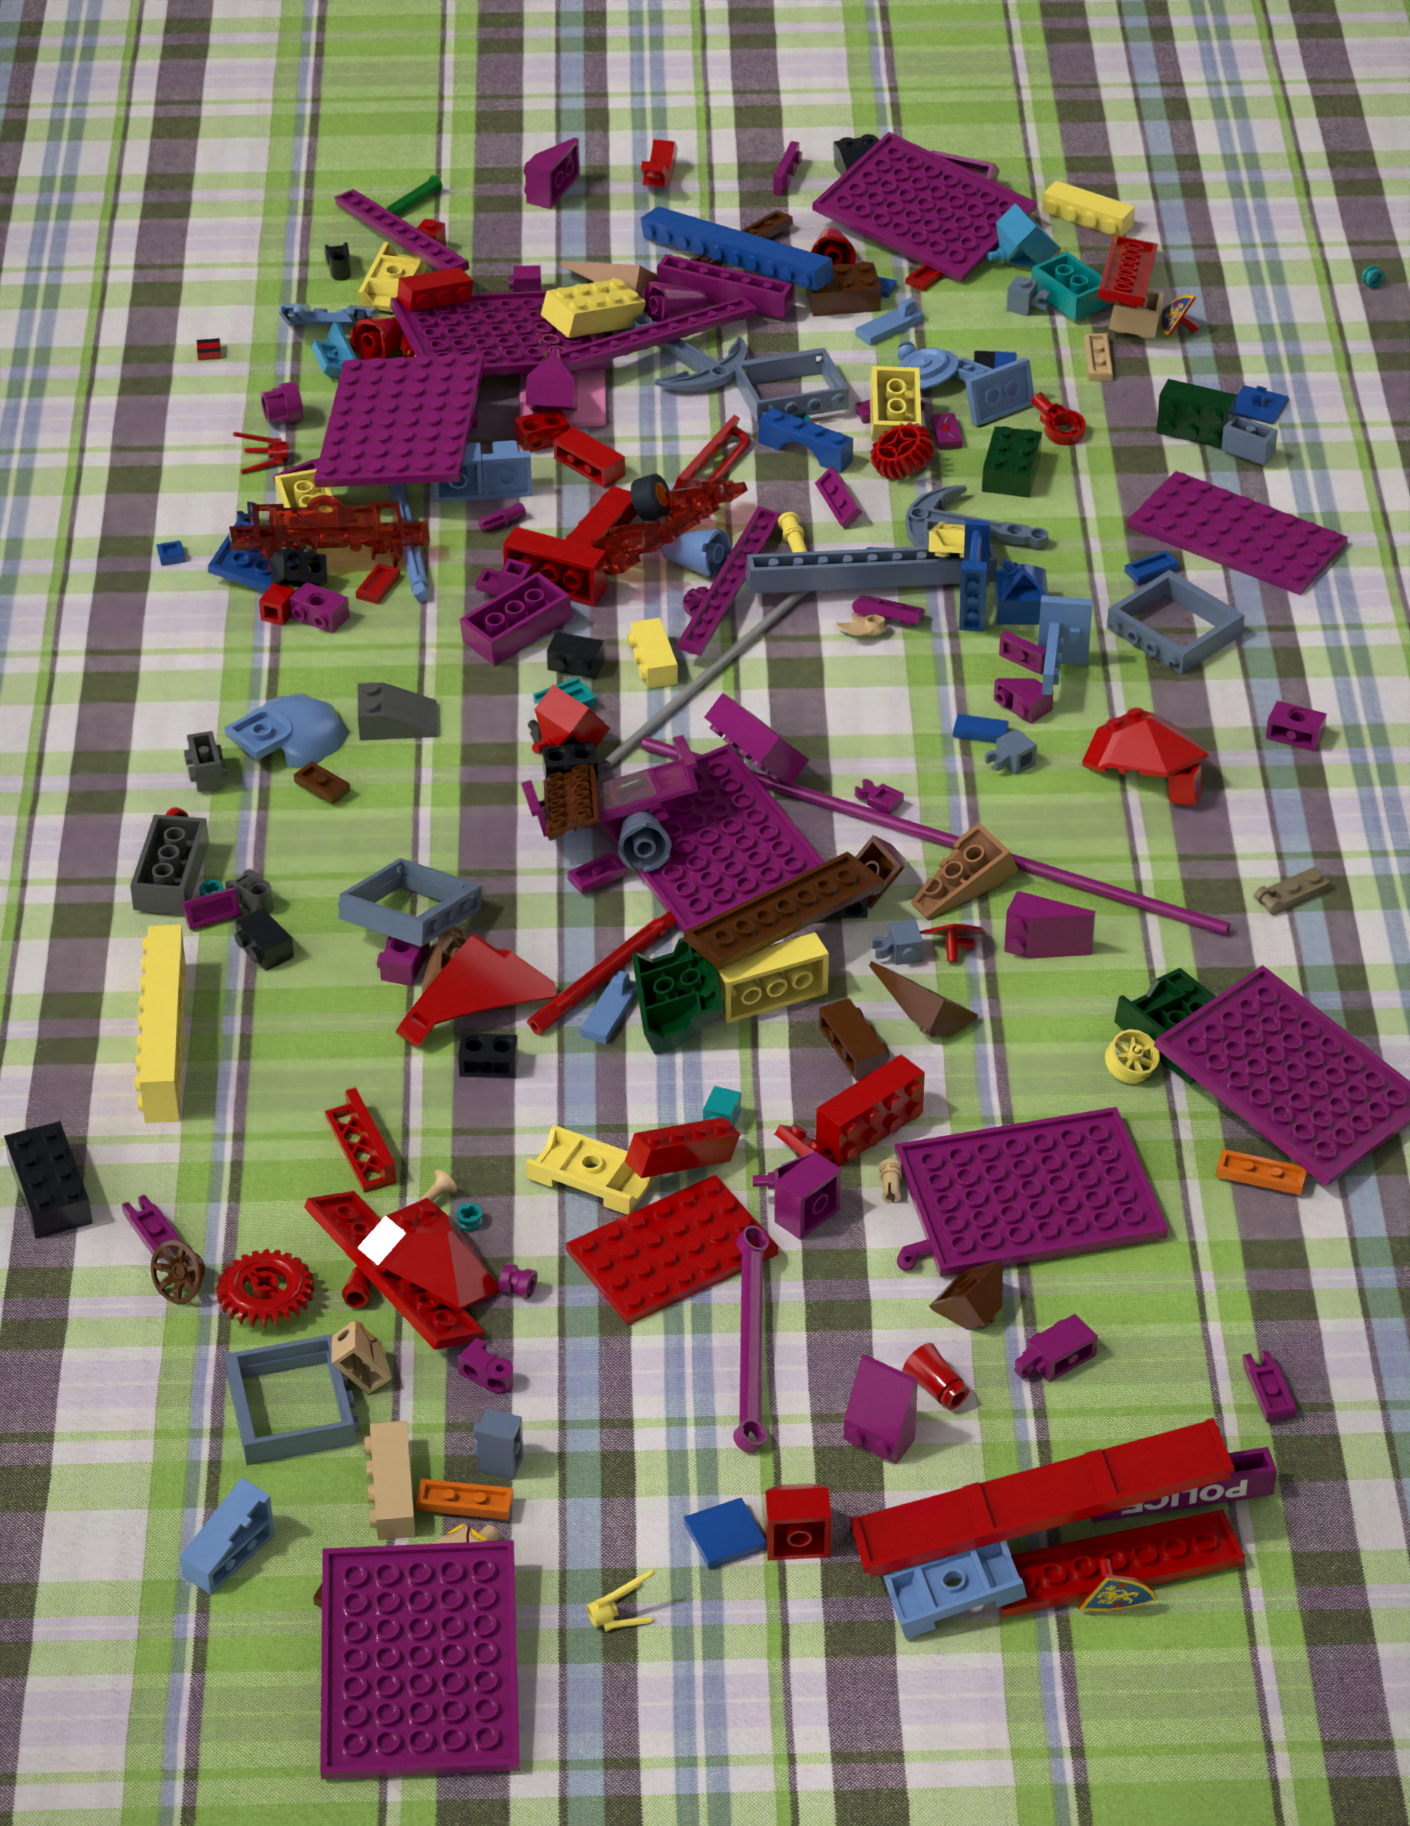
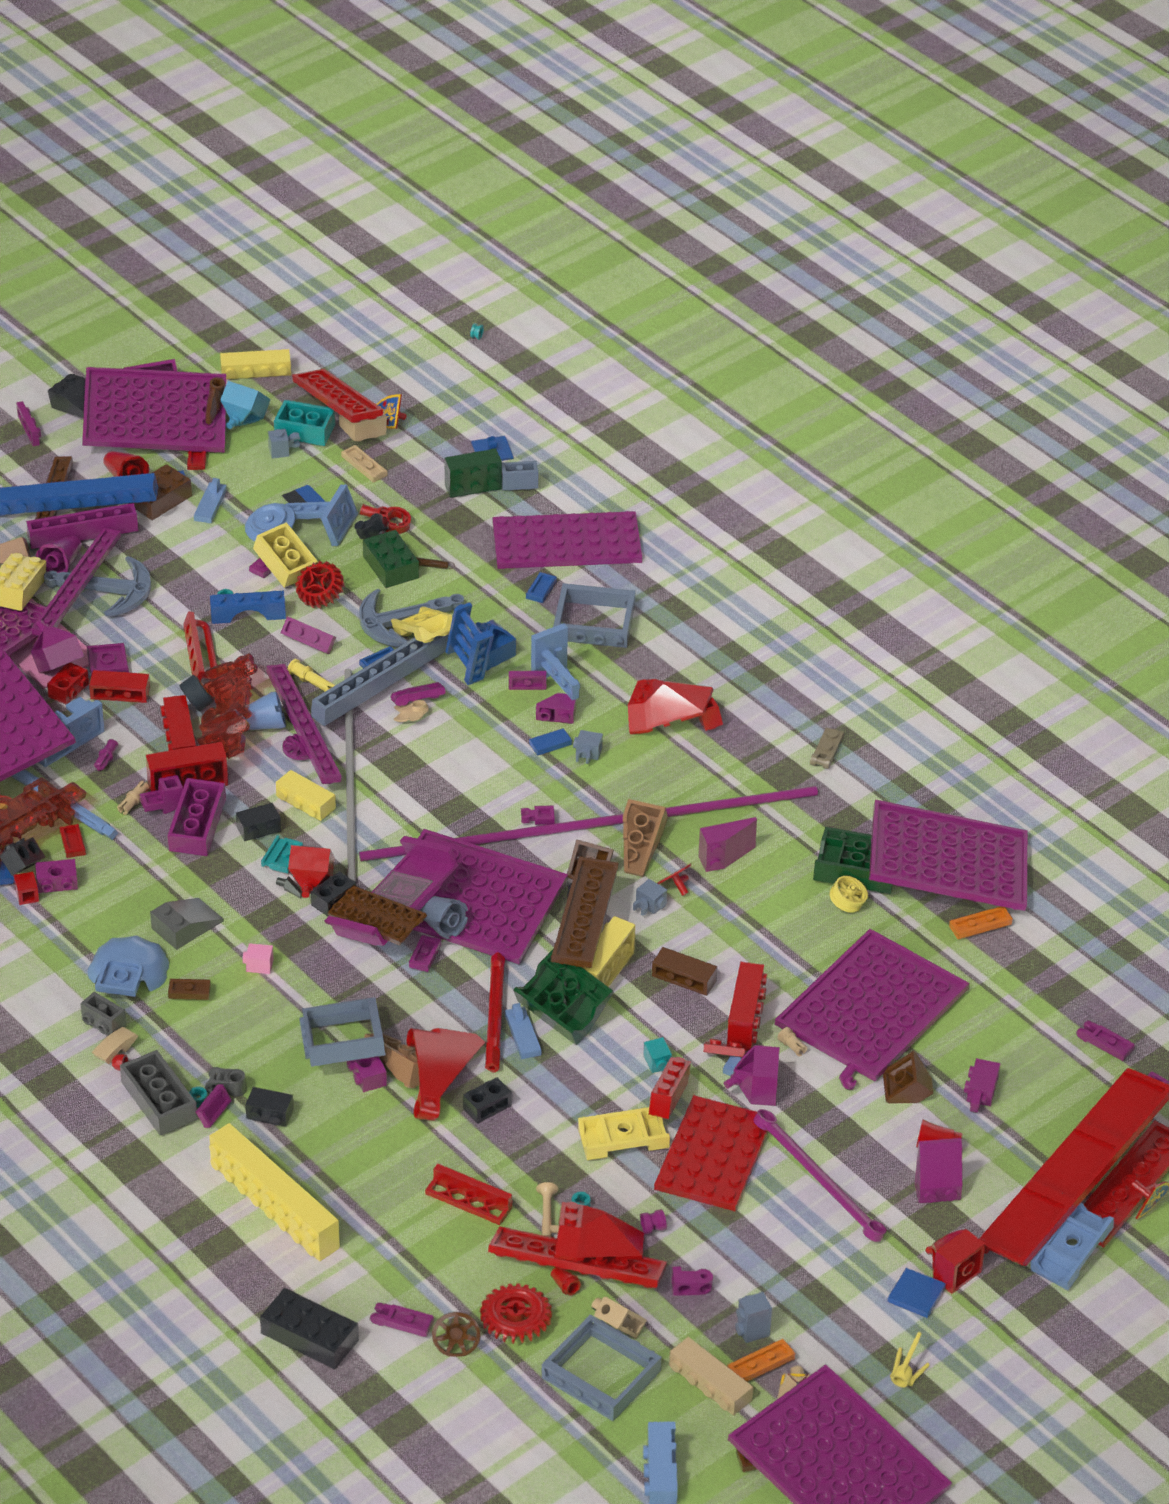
camera: 40 degrees left, 0 degrees up
(196, 795) = (112, 1044): none -> tan slope
(422, 789) = (258, 958): none -> bright pink brick
(472, 573) = (133, 798): none -> tan pin
(611, 426) = (107, 657): none -> magenta tile
(755, 740) = (441, 816): magenta brick -> none
(792, 366) = (198, 548): sand blue window -> none
(905, 349) = (241, 516): medium blue hinge -> none
(924, 1005) = (705, 928): reddish brown wedge -> none
(946, 431) = (323, 555): magenta tile -> none
(987, 226) = (213, 404): none -> reddish brown piece
(1027, 418) = (374, 526): none -> black piece
(1057, 487) = (434, 563): none -> reddish brown piece
(1296, 726) = (729, 646): magenta brick -> none

